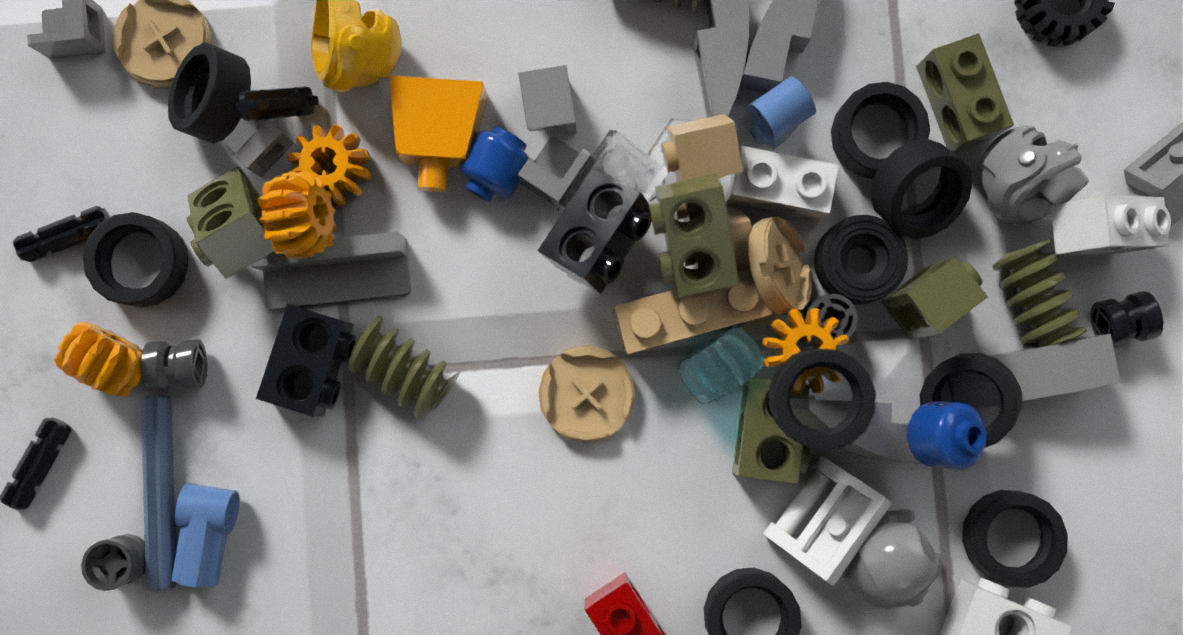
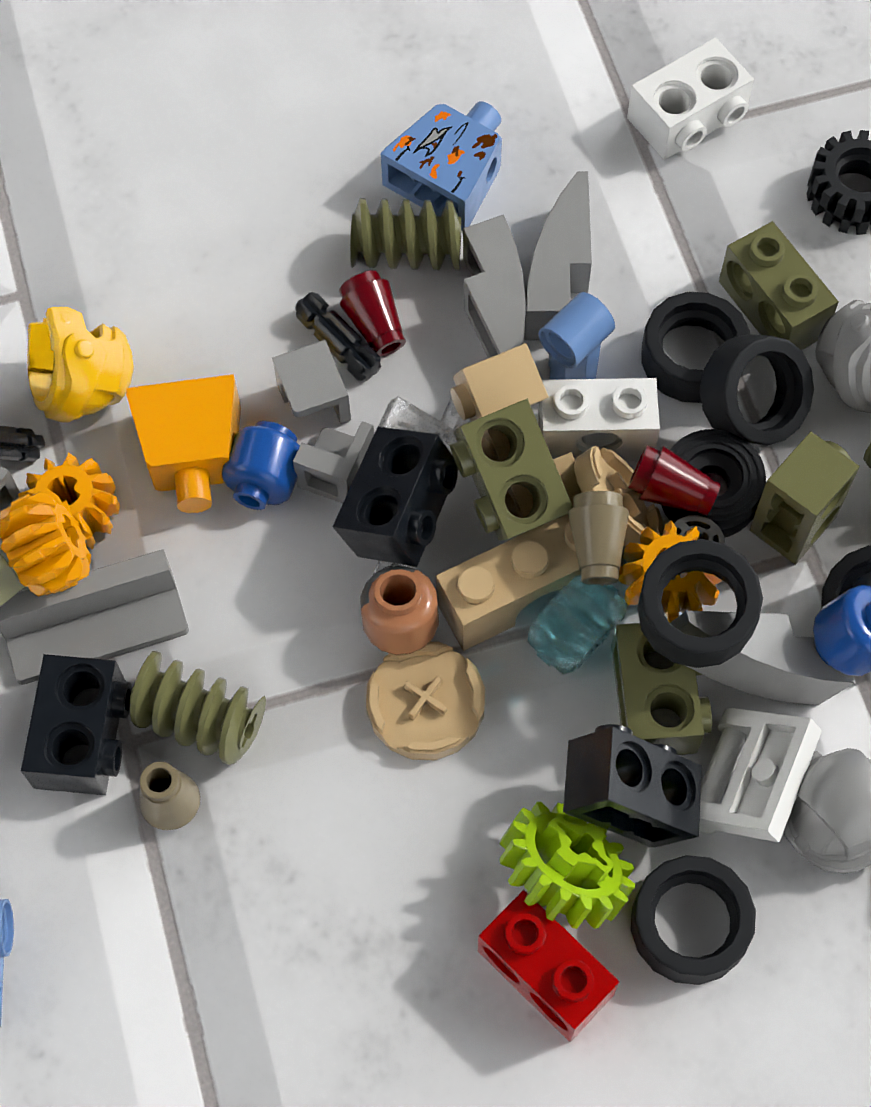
camera: 10 degrees left, 20 degrees down
(381, 430) = (173, 806): none -> dark tan cone
(579, 53) = (339, 335): none -> black axle
(583, 306) = (399, 610): none -> nougat head
(614, 38) = (373, 311): none -> dark red cone
(665, 563) = (566, 865): none -> lime gear
(731, 515) = (632, 787): none -> black brick
(754, 313) = (599, 535): none -> dark tan cone
(827, 263) = (672, 482): none -> dark red cone

